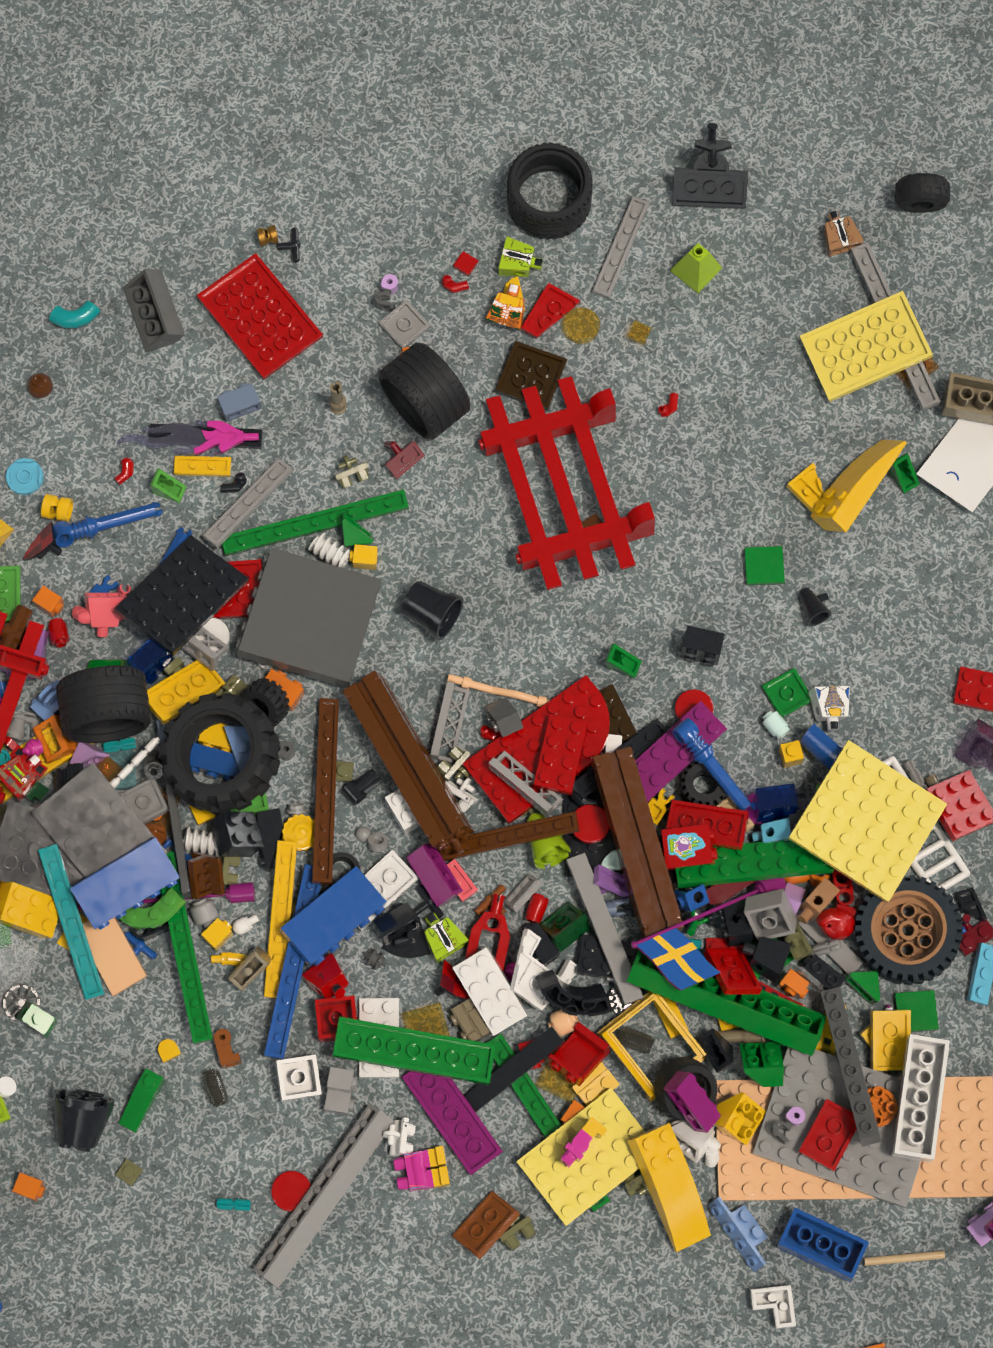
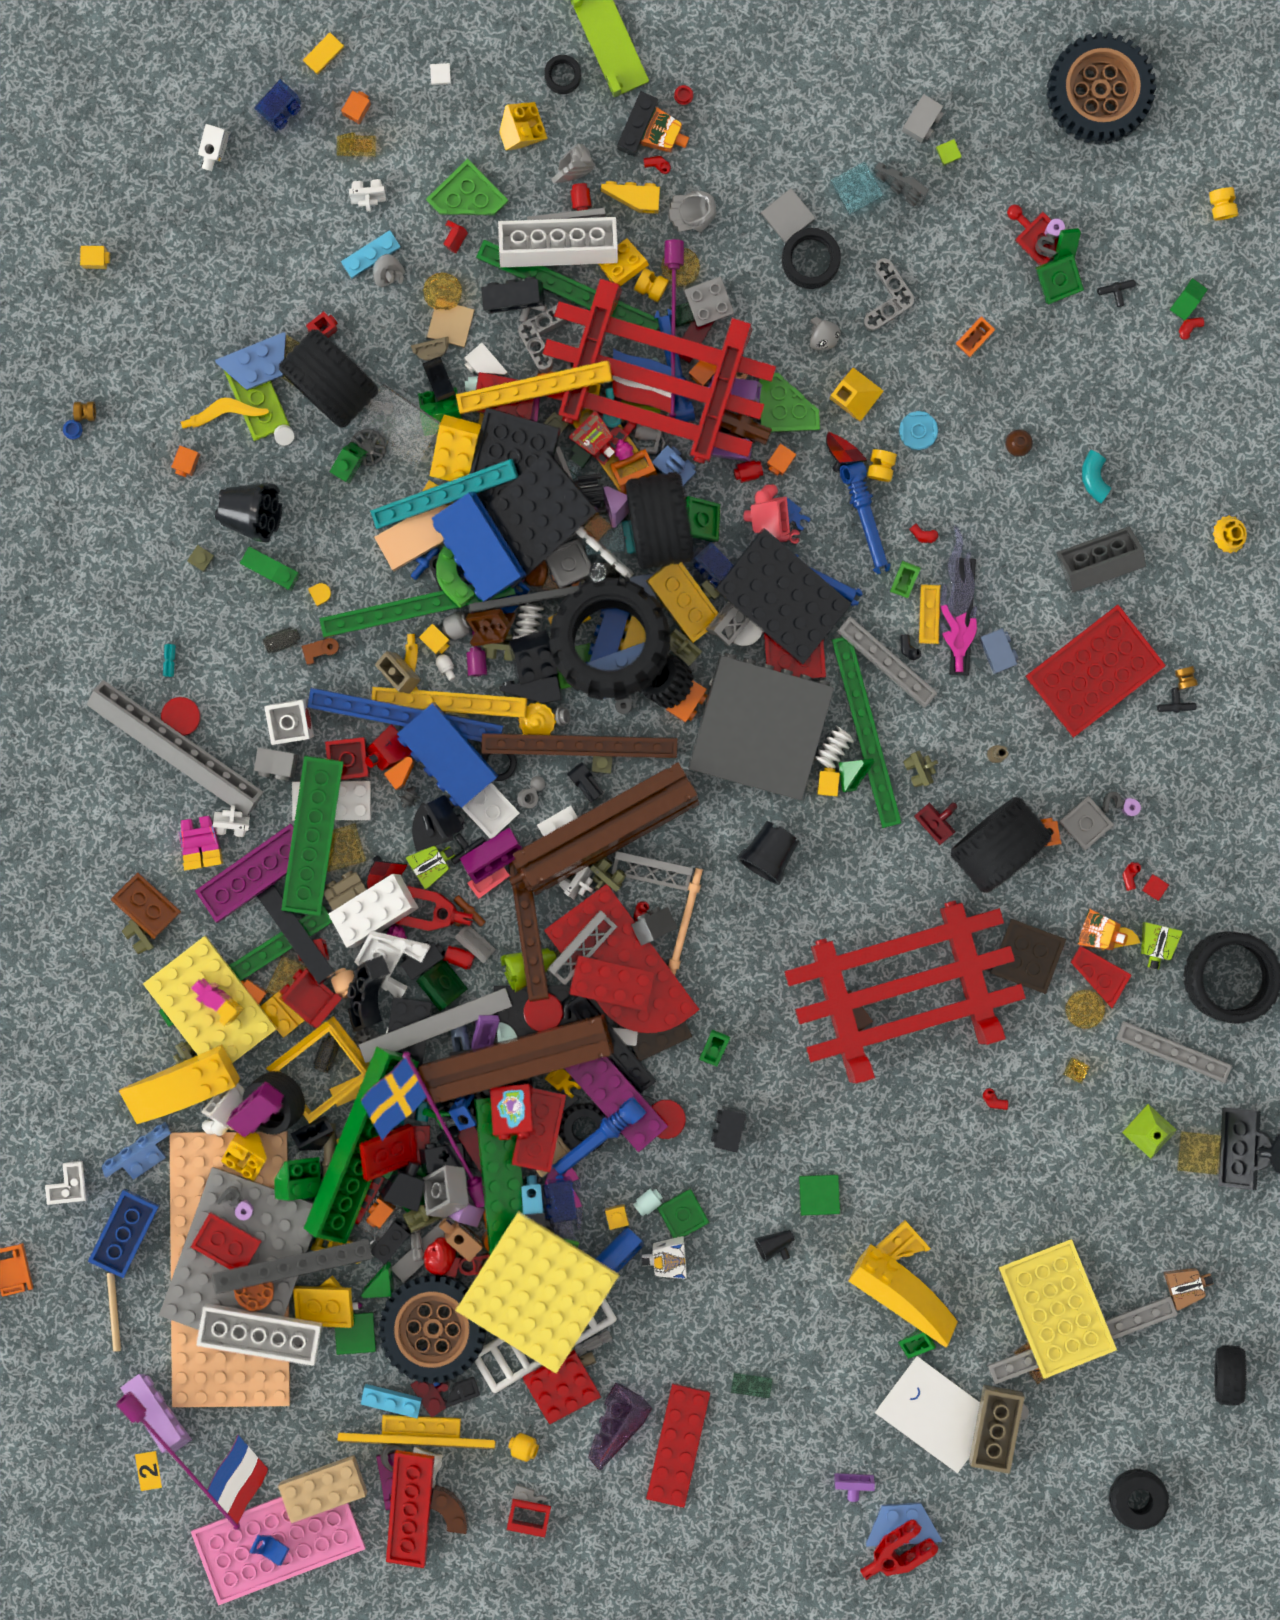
camera: 90 degrees right, 15 degrees up
(132, 197) = (1229, 534): none -> yellow piece
(351, 964) = (399, 773): none -> orange tile
(715, 225) = (1198, 1152): none -> clear yellow tile
(951, 628) = (751, 1385): none -> clear green tile

